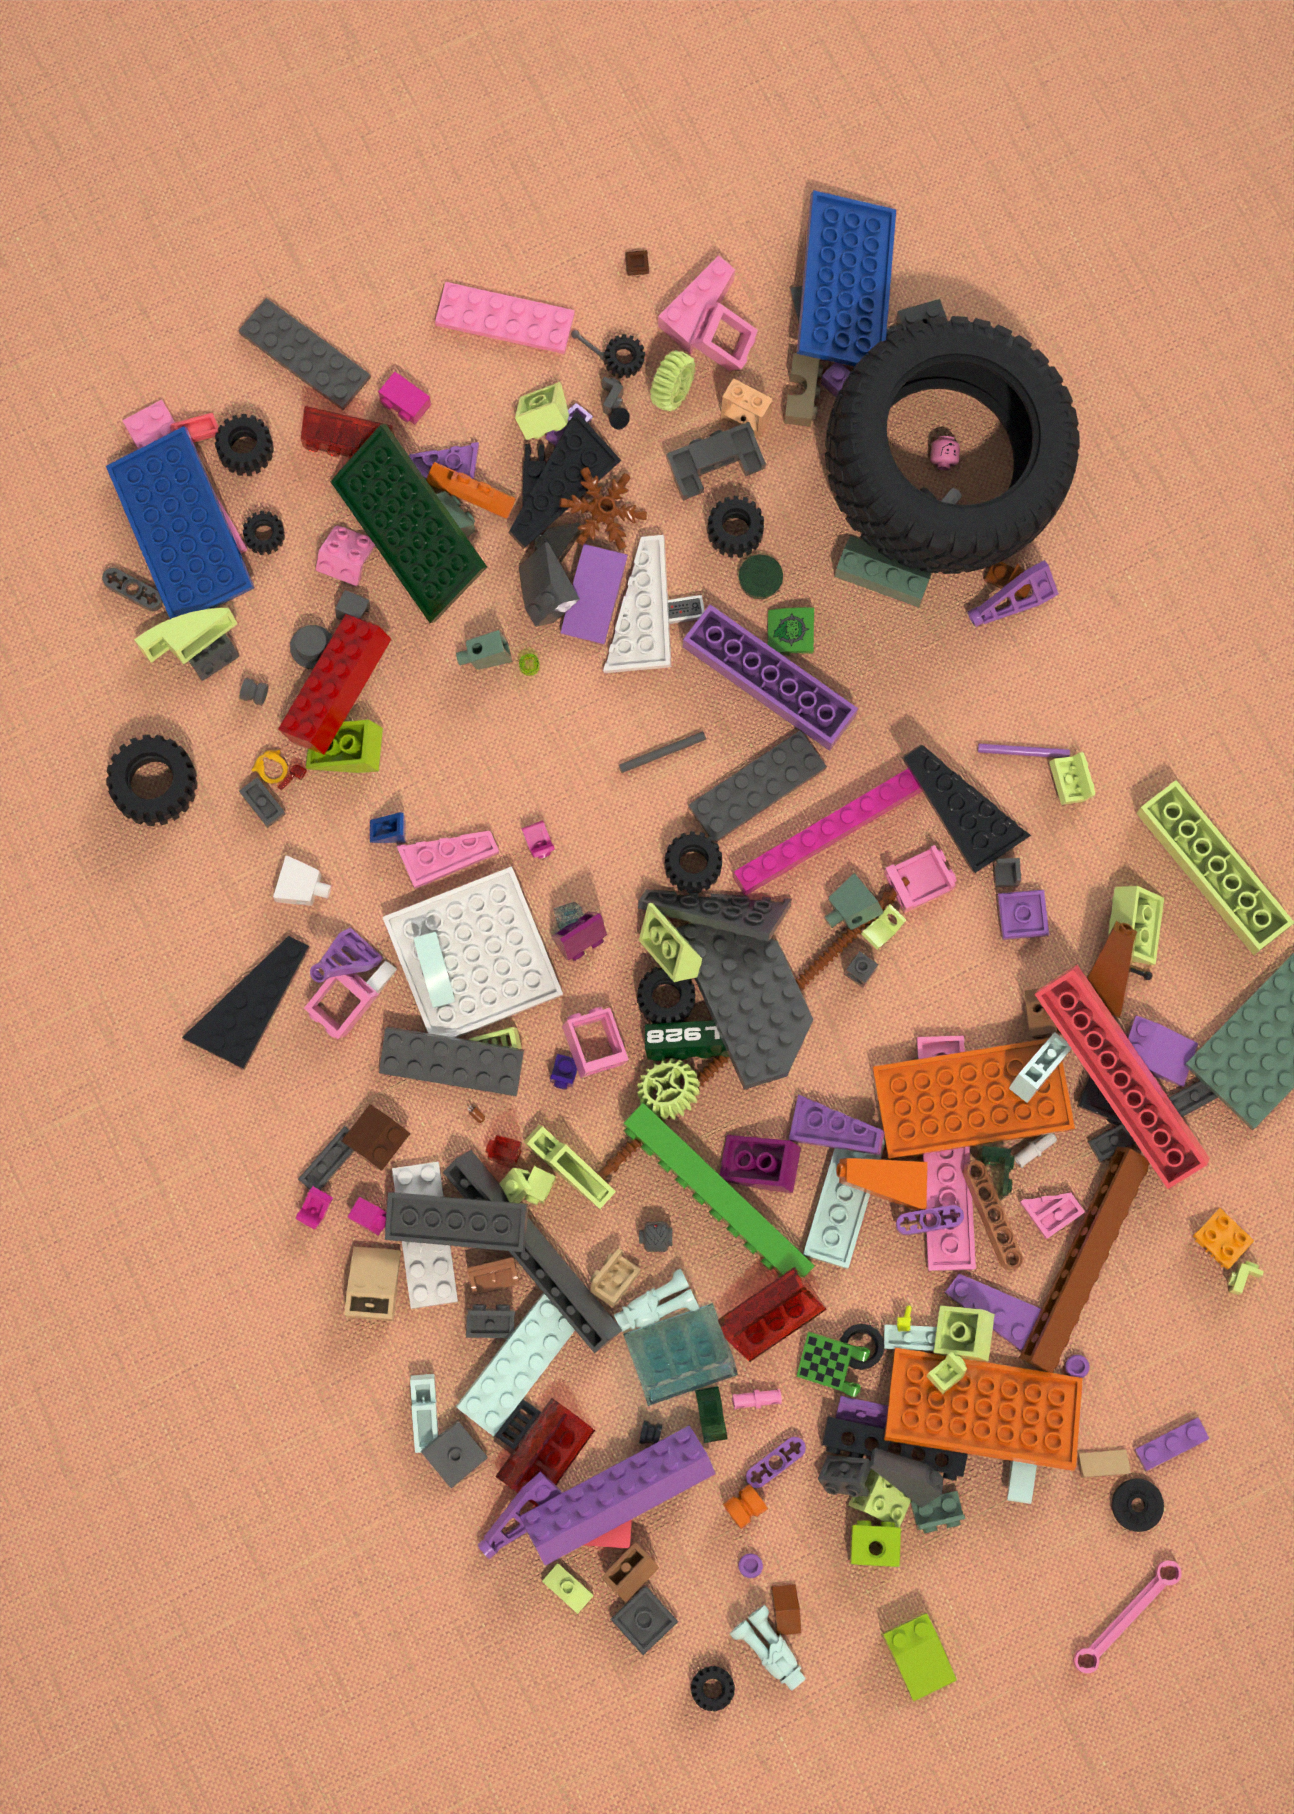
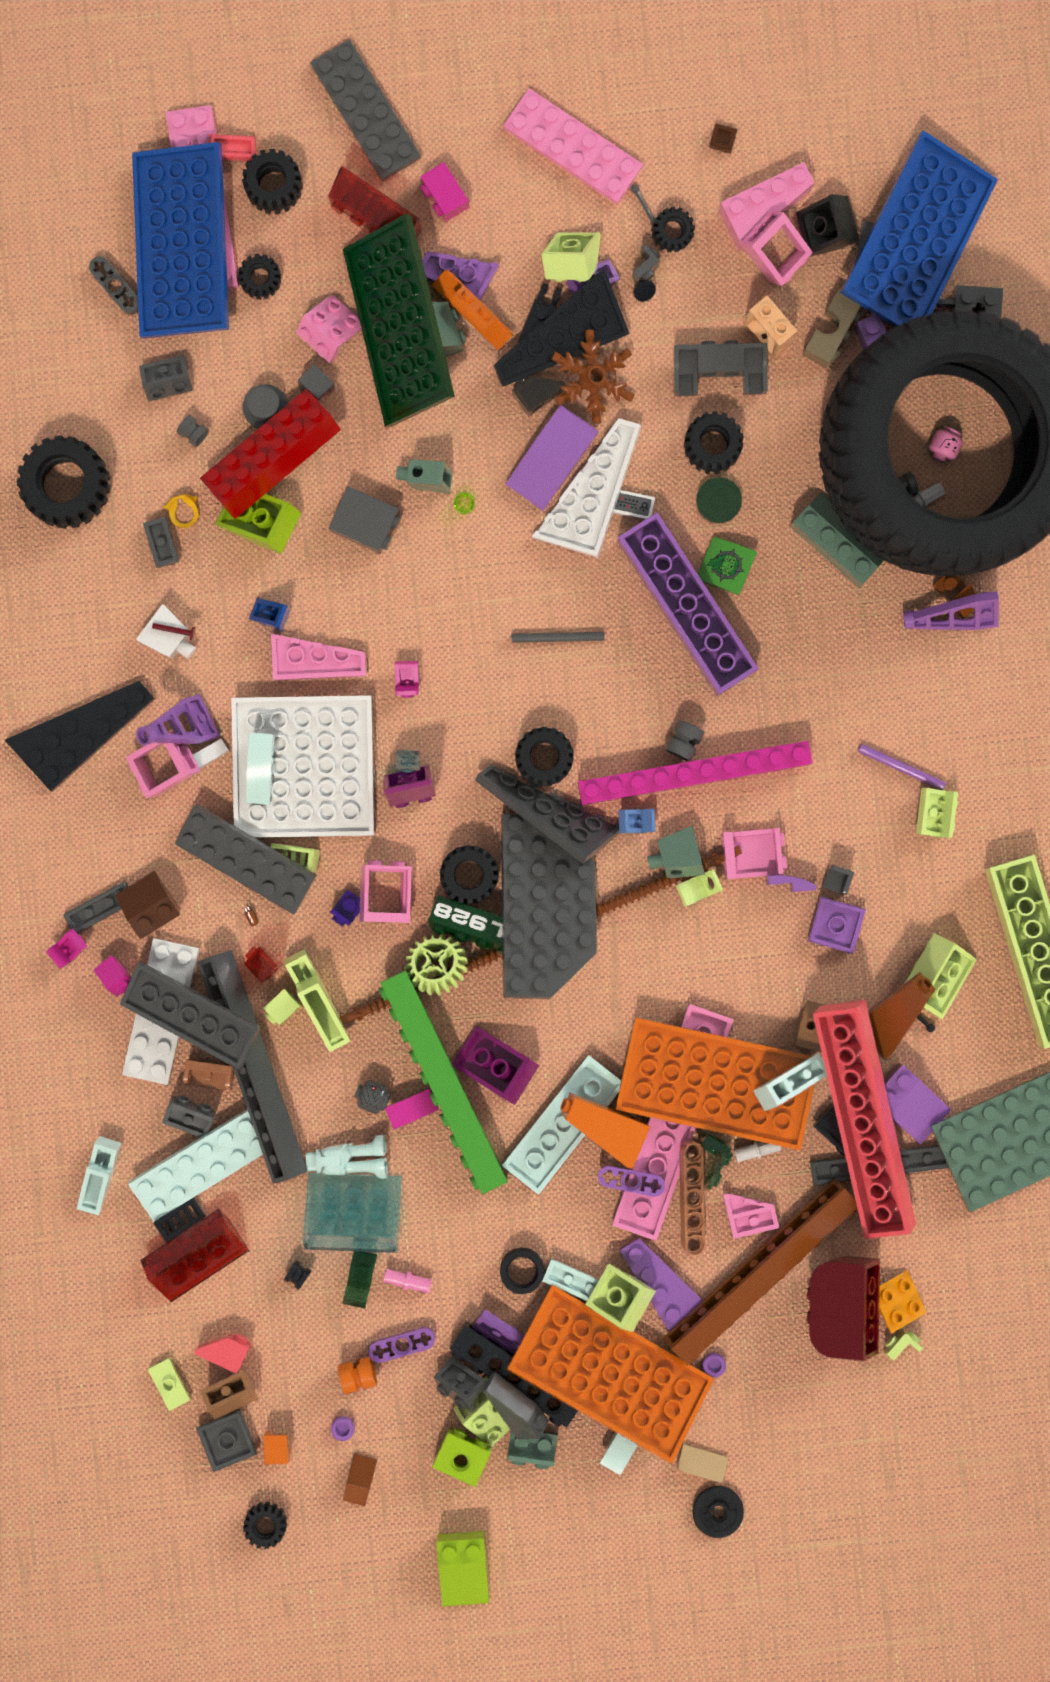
camera: 25 degrees right, 10 degrees up
(186, 634) = (147, 350): yellowish green slope -> none
(296, 771) = (204, 524): clear red hand -> none
(306, 874) = (191, 633): none -> dark red pin
(372, 1284) = (94, 1040): tan slope -> none
(444, 712) = (365, 520): none -> dark grey brick
(454, 1454) = (111, 1224): dark grey plate -> none
(515, 1185) = (259, 1000): yellowish green bracket -> none
(538, 1489) = (174, 1289): medium lavender plate -> none
(545, 587) = (507, 434): dark grey slope -> none
(613, 1278) = (318, 1121): tan bracket -> none
(617, 1495) = (242, 1322): medium lavender brick -> none
(668, 946) = (488, 831): yellowish green slope -> none
(672, 380) = (709, 273): yellowish green gear -> none
(694, 1607) = (276, 1449): none -> orange panel
(697, 1233) = (411, 1109): none -> dark pink slope
(757, 786) = (634, 705): dark grey plate -> none
(761, 301) = (828, 224): none -> pearl dark grey slope
(771, 1314) = (449, 1211): clear red slope -> none
(778, 1658) = (335, 1521): light aqua piece -> none
(802, 889) = (636, 821): none -> medium blue bracket
(816, 796) = (684, 740): none -> dark grey wheel
(828, 1361) = (485, 1274): bright green flag -> none
(830, 1128) = (571, 1057): medium lavender wing -> none
(861, 969) = (662, 919): dark grey brick -> none
(903, 1323) = (569, 1266): neon yellow hand -> none
(948, 1372) = (589, 1330): yellowish green bracket -> none
(970, 819) = (822, 815): black wing -> none
(971, 890) = (796, 884): none -> medium lavender slope
(1127, 1616) = (666, 1607): bright pink piece -> none
(1171, 1444) = (772, 1469): medium lavender plate -> none
(1175, 1257) = (845, 1308): none -> dark red brick

